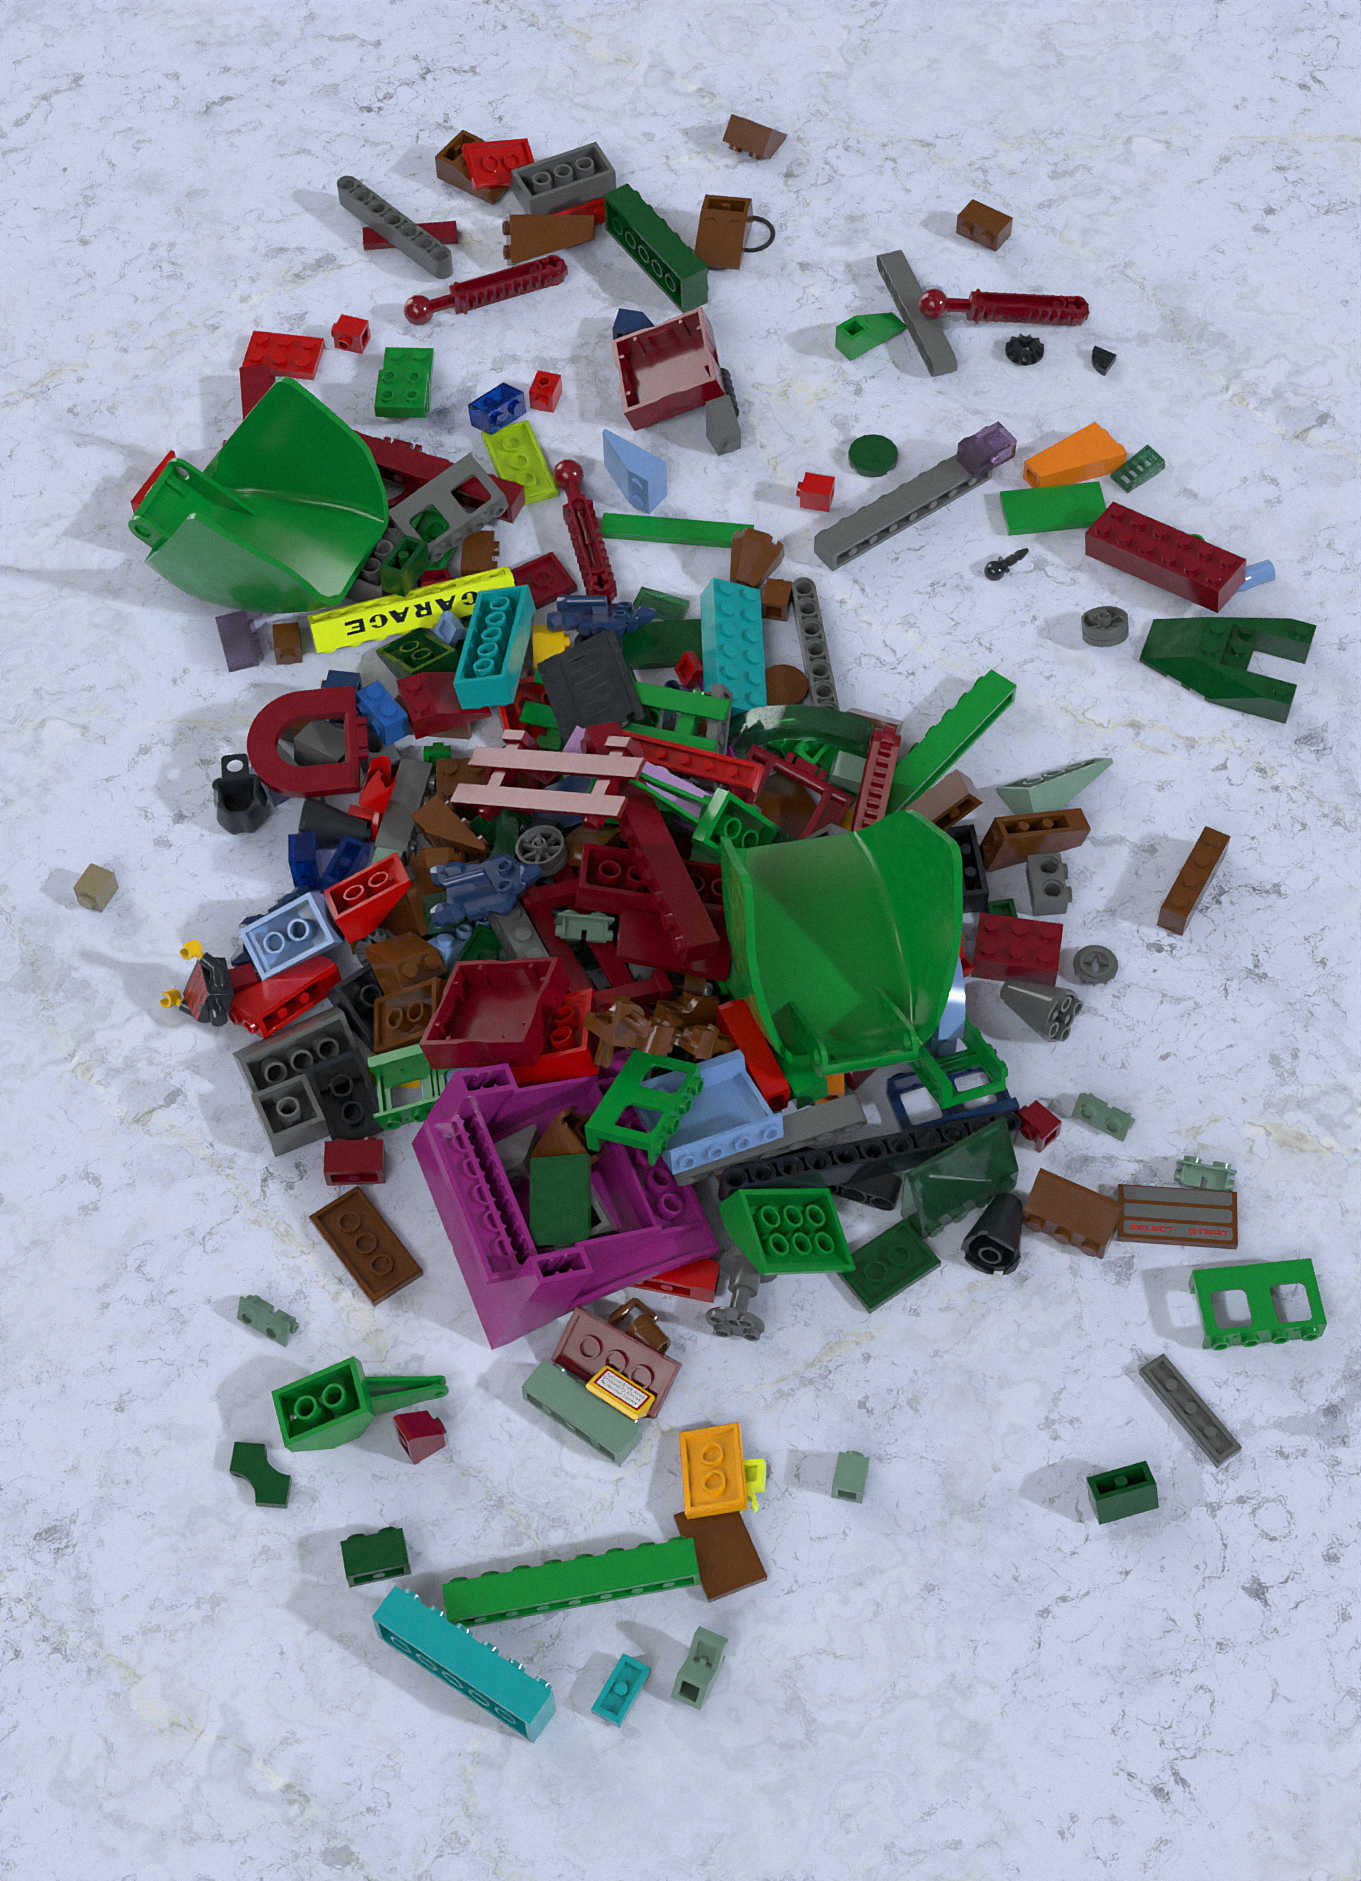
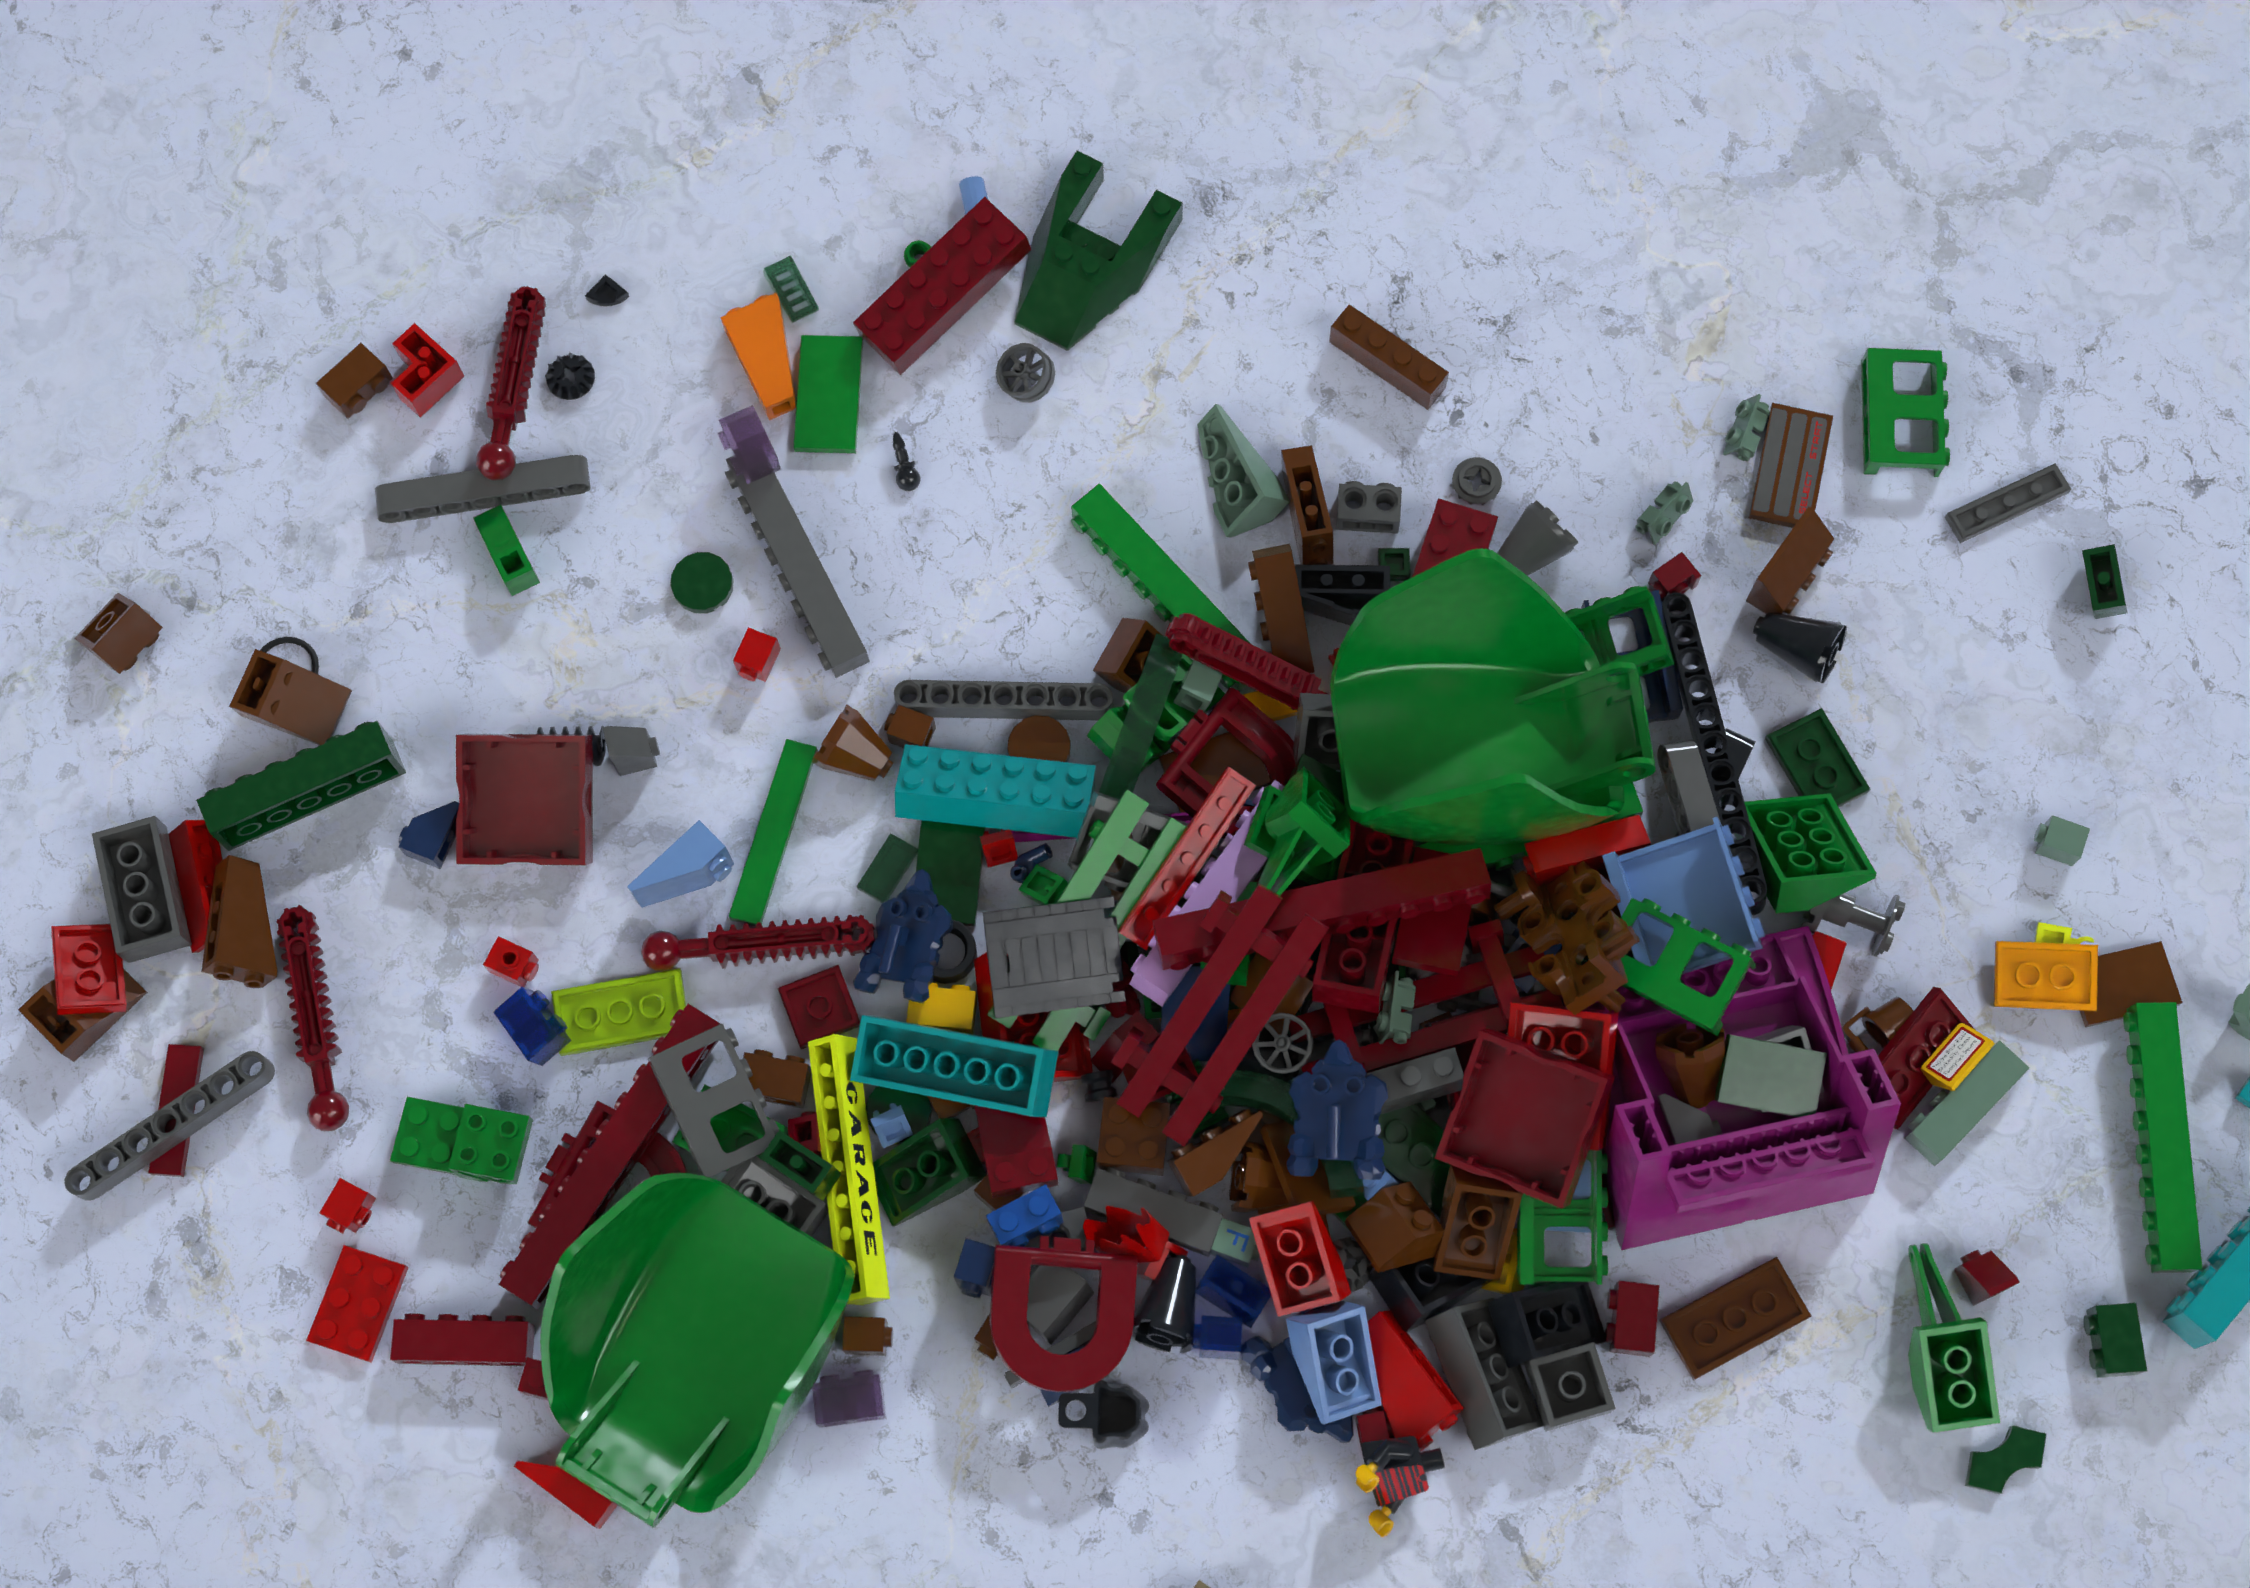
camera: 80 degrees left, 15 degrees up
(257, 1314) = (1829, 1427): sand green hinge -> none
(960, 1180) = (1744, 670): clear green slope -> none
(1000, 262) = (430, 370): none -> red brick

